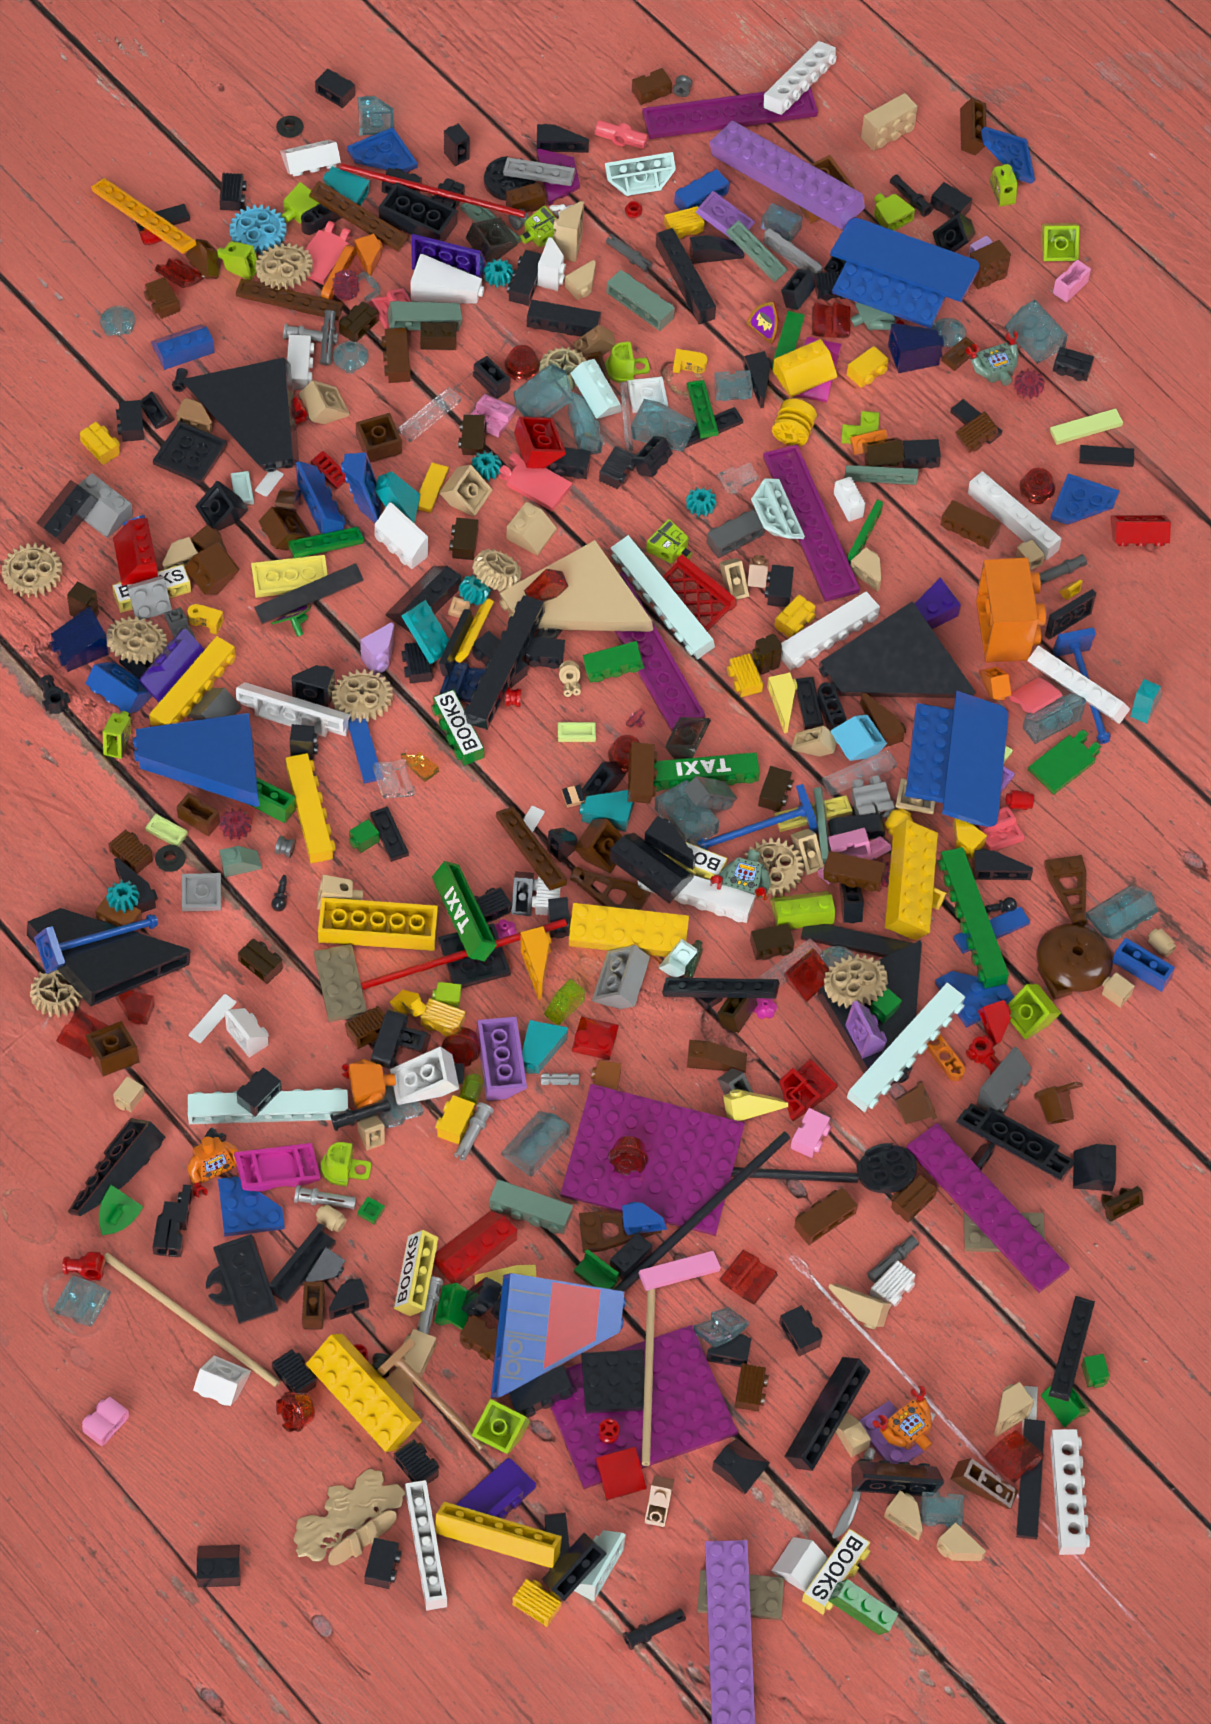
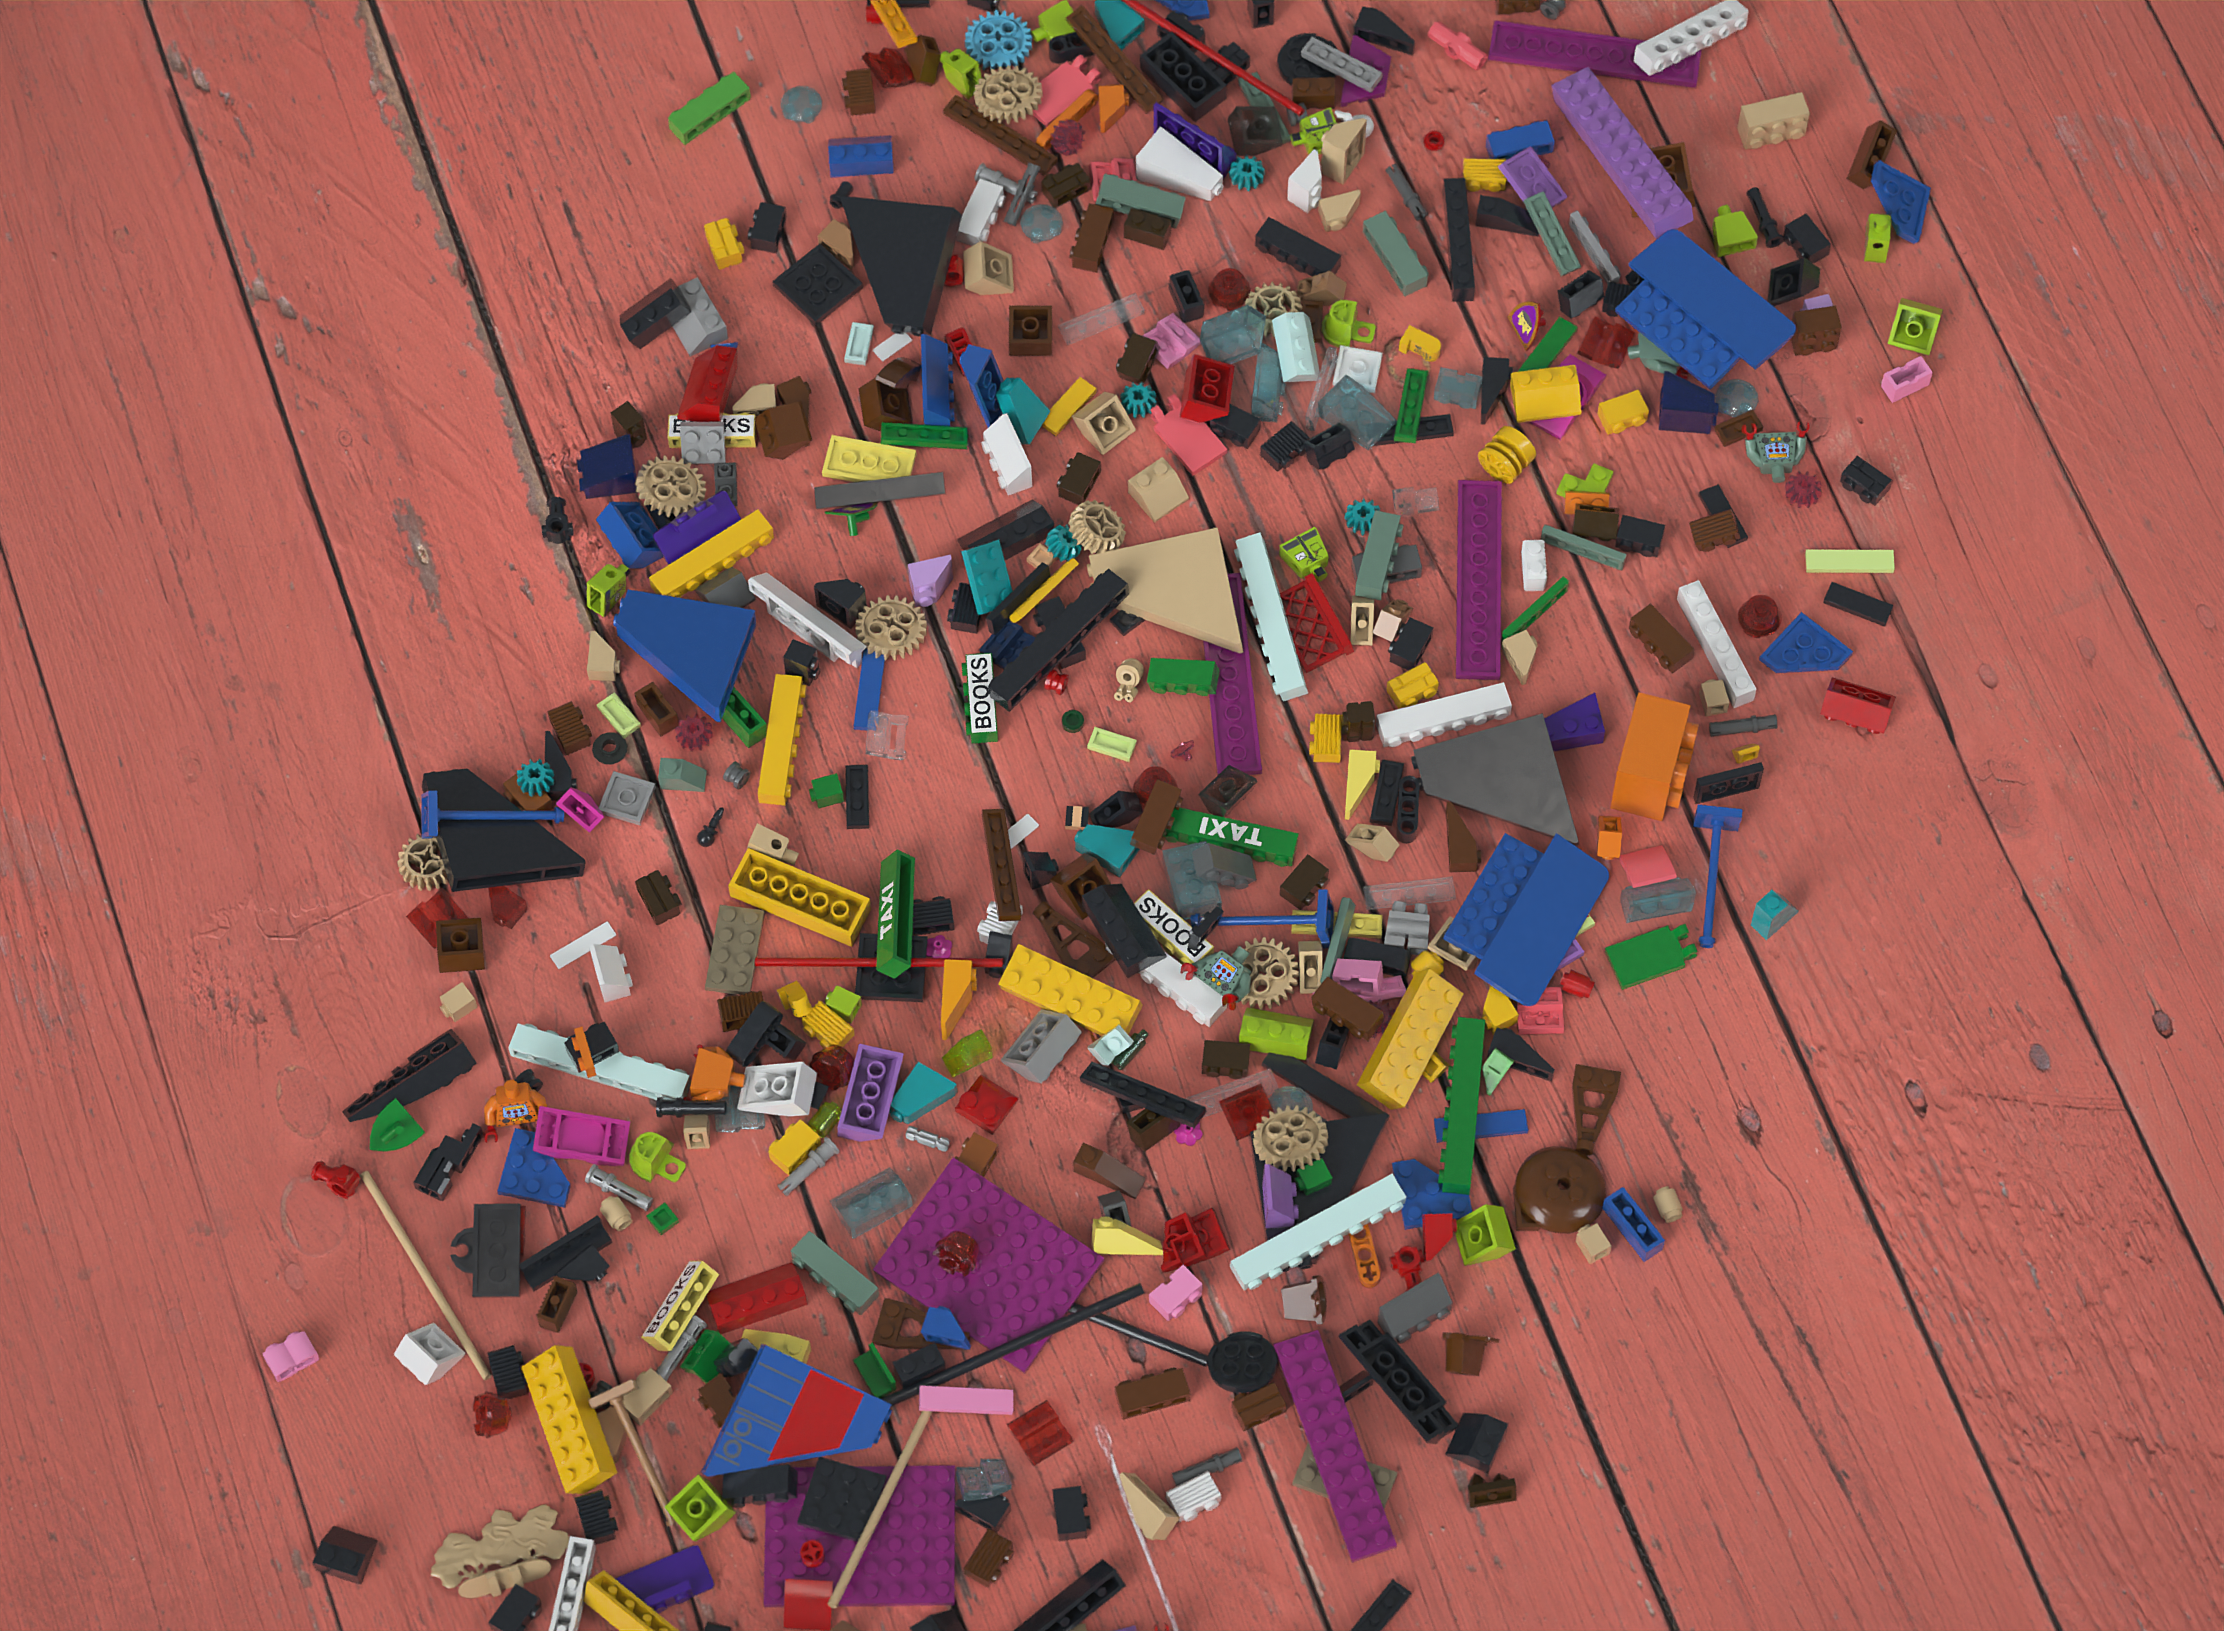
camera: 25 degrees right, 5 degrees up
(32, 570) = (591, 370): tan gear -> none
(44, 343) = (709, 108): none -> bright green brick
(81, 1301) = (319, 1215): clear light blue slope -> none
(136, 790) = (601, 660): none -> tan slope
(156, 410) = (802, 223): black slope -> none
(169, 910) = (581, 808): none -> dark pink slope
(206, 617) = (758, 482): yellow leg -> none
(221, 507) = (825, 359): black slope -> none
(262, 1101) = (585, 1061): none -> orange plate
(349, 1299) = (598, 1309): black slope -> none
(373, 284) = (1102, 144): clear light blue piece -> none
(421, 765) = (924, 729): clear yellow slope -> none
(522, 893) = (972, 912): black slope -> none
(524, 278) = (1273, 189): black brick -> none
(538, 724) = (1072, 721): none -> dark green tile
(545, 652) = (1113, 641): black brick -> none
(547, 585) = (1140, 565): clear red slope -> none
(641, 174) = (1457, 100): light aqua wedge -> none
(667, 839) = (1151, 901): black slope -> none
(716, 840) = (1208, 924): none -> black plate
(729, 524) = (1378, 555): none -> sand green brick
(775, 510) = (1440, 553): light aqua wedge -> none
(782, 222) = (1598, 205): clear light blue brick -> none
(859, 738) = (1421, 853): medium azure slope -> none
(986, 882) = (1495, 1069): none -> bright green tile
(1008, 904) = (1512, 1102): black bar -> none
(1037, 331) = (1839, 428): clear light blue slope -> none
(1078, 684) = (1699, 871): white brick -> none
(1122, 912) = (1638, 1154): clear light blue slope -> none

